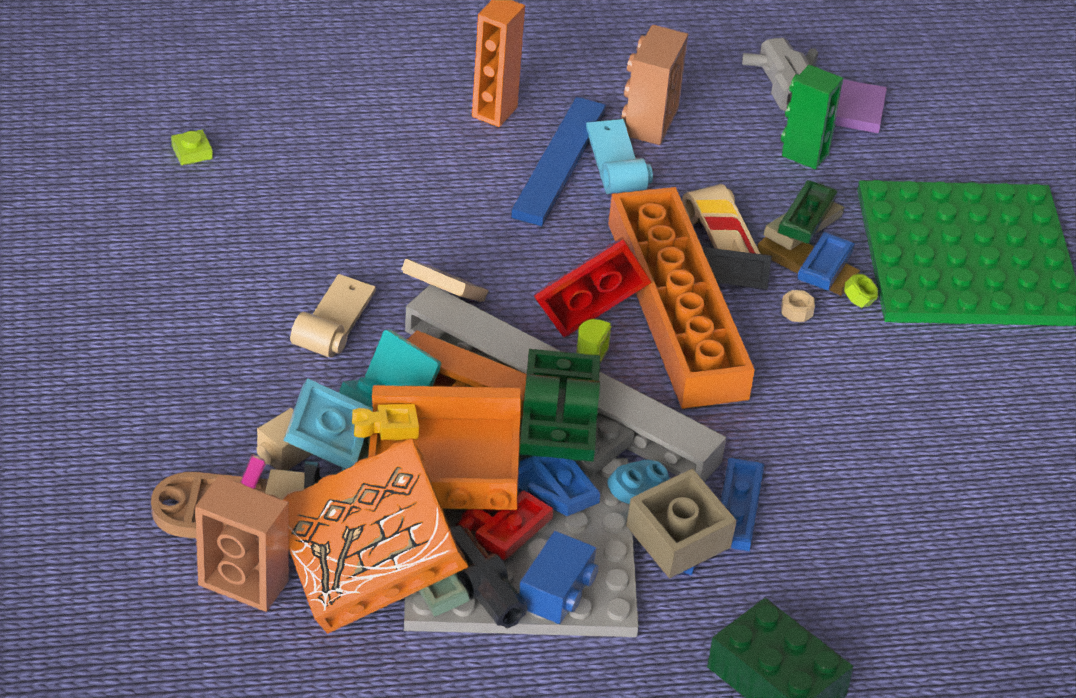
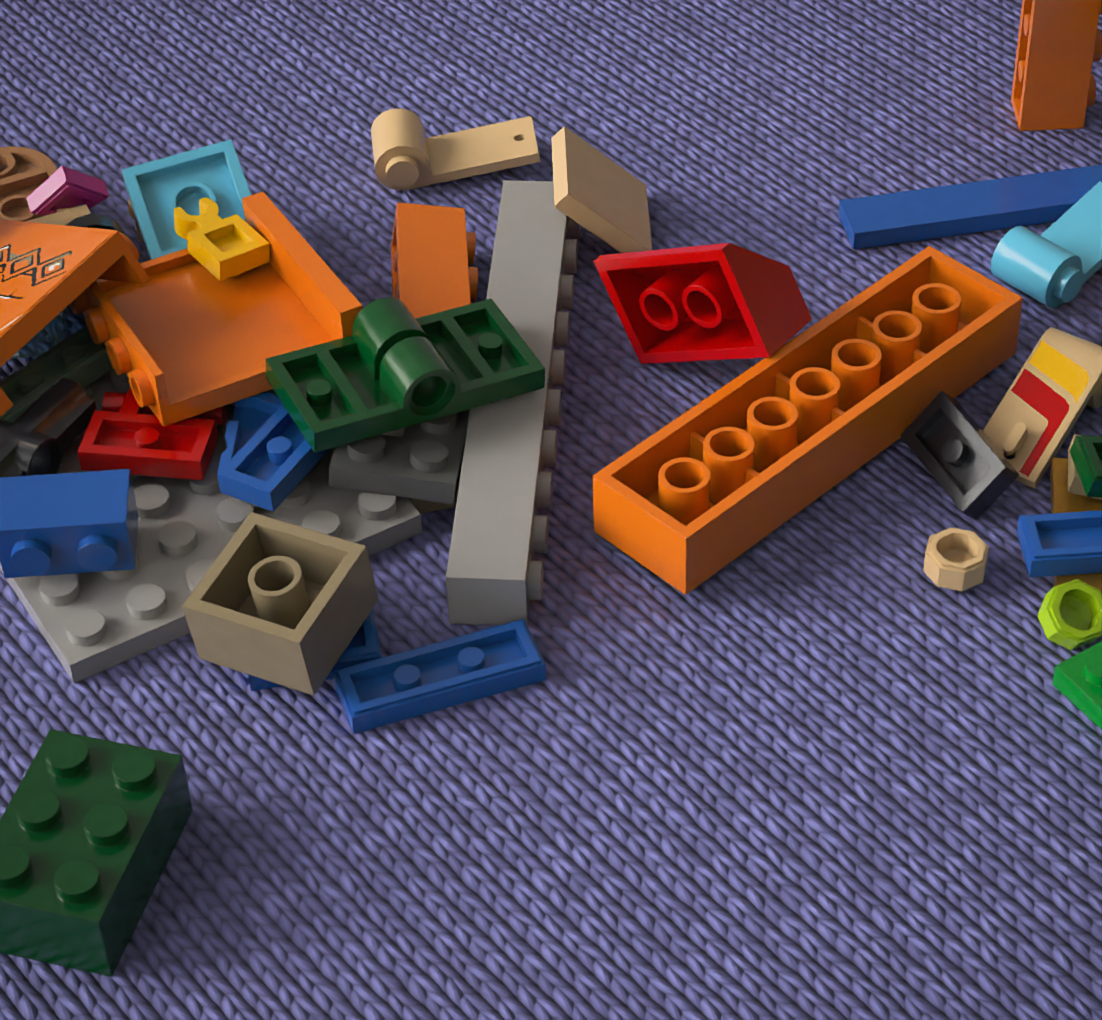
camera: 65 degrees right, 0 degrees up
(393, 364) = (345, 240): teal bracket -> none
(594, 338) = (630, 380): lime brick -> none
(636, 478) = (376, 530): dark azure plate -> none

